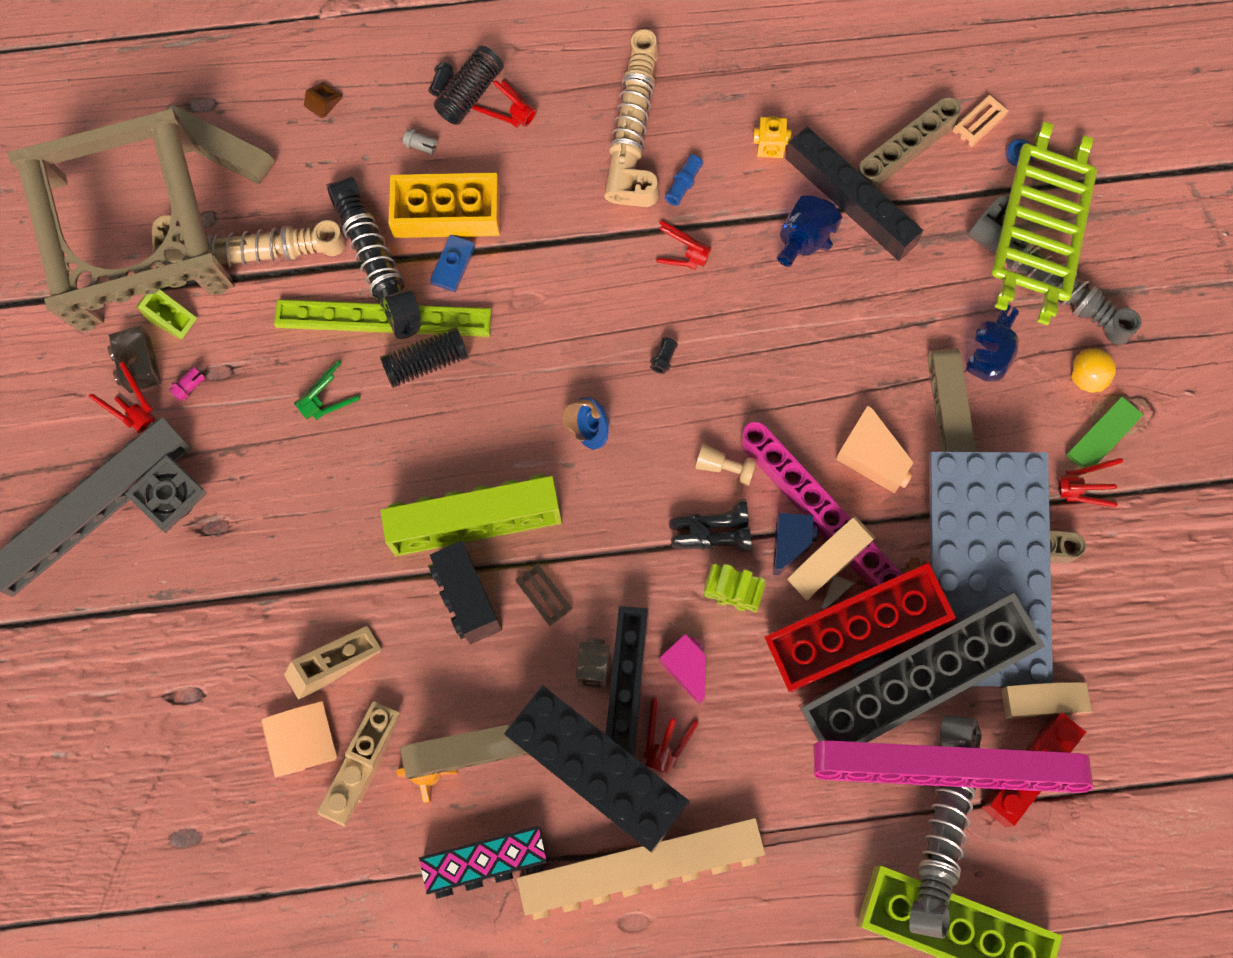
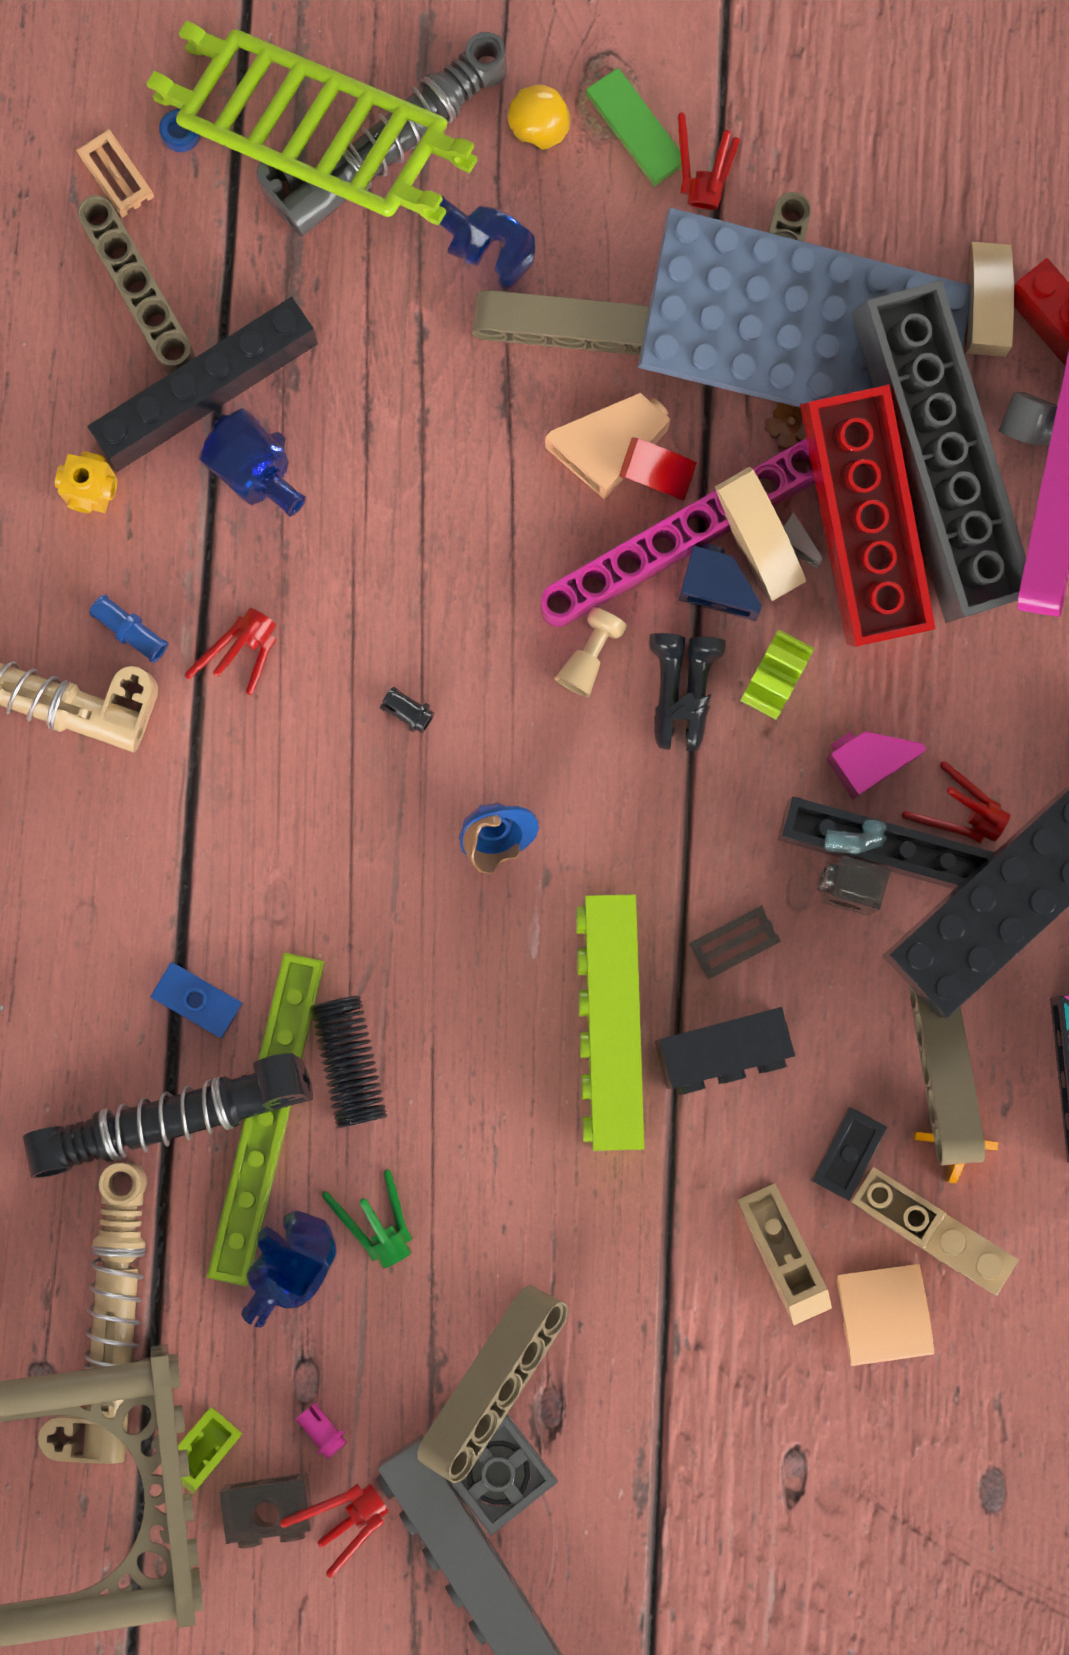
camera: 85 degrees left, 10 degrees up
(223, 478) = (492, 1384): none -> dark tan beam
(289, 345) = (289, 1270): none -> clear blue piece
(407, 695) = (849, 1153): none -> black plate
(444, 205) = (104, 995): yellow brick -> none
(620, 654) = (856, 843): none -> clear light blue arm
(862, 484) = (657, 468): none -> red slope

